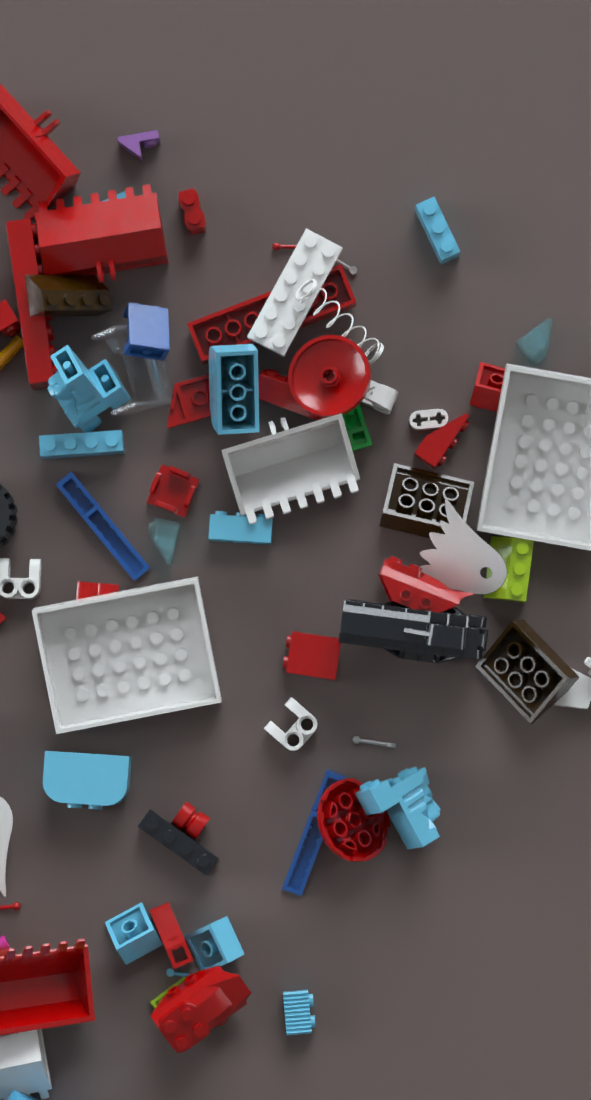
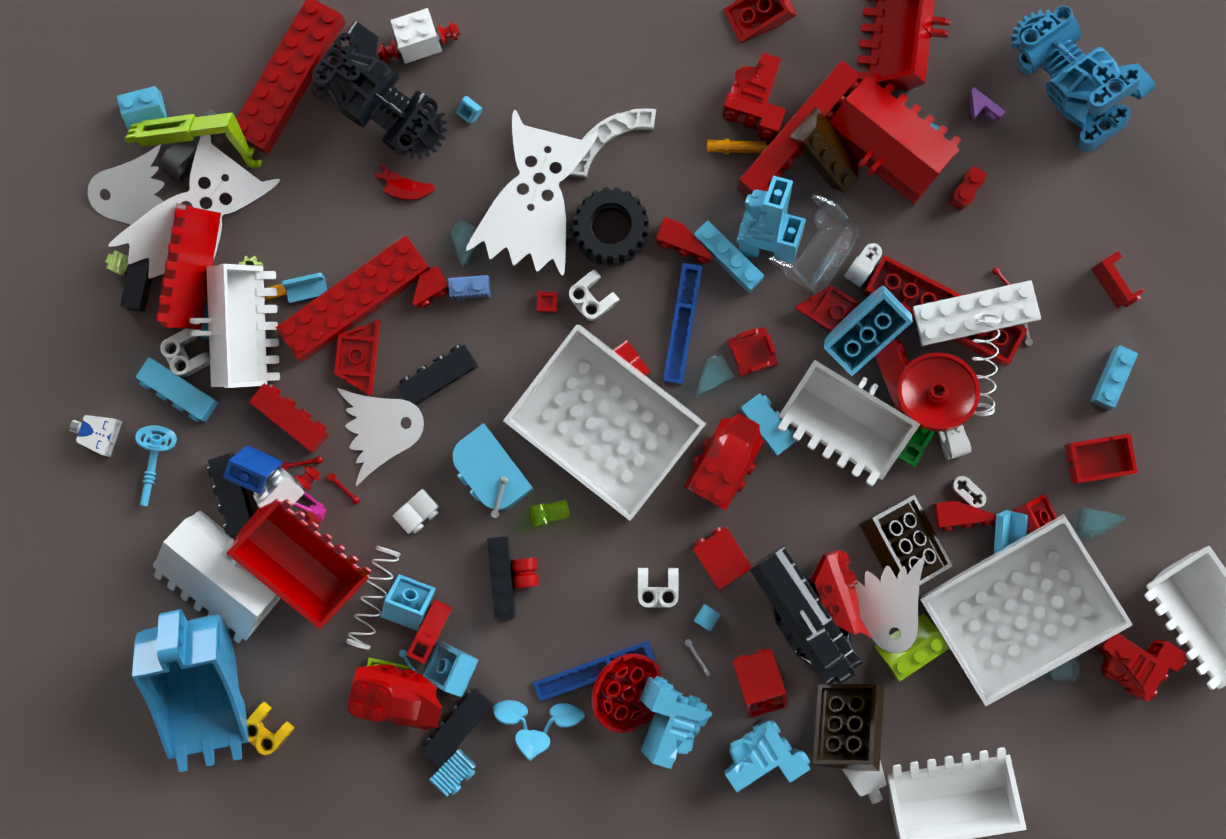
camera: 50 degrees right, 0 degrees up
(33, 469) = (678, 237): none -> red slope
(68, 865) = (416, 512): none -> white brick
(123, 802) = (495, 513): none -> light grey hinge
(130, 1001) = (357, 643): none -> white piece
(147, 331) = (852, 231): panel -> none
(158, 764) = (544, 513): none -> clear neon green piece
(181, 347) = (863, 265): none -> white piece
(189, 55) = (1081, 84): none -> dark azure connector
(240, 586) = (725, 461): none -> red slope
(265, 977) = (458, 726): none -> black brick
(324, 927) = (535, 742): none -> medium azure plant
(349, 707) = (707, 617): none -> medium azure brick
(364, 166) = (1114, 283): none -> red panel
(435, 710) = (760, 683): none -> red slope
(482, 414) = (1009, 528): none -> medium azure panel
(488, 756) = (761, 752): none -> medium azure brick
(490, 297) = (1101, 458): none -> red piece

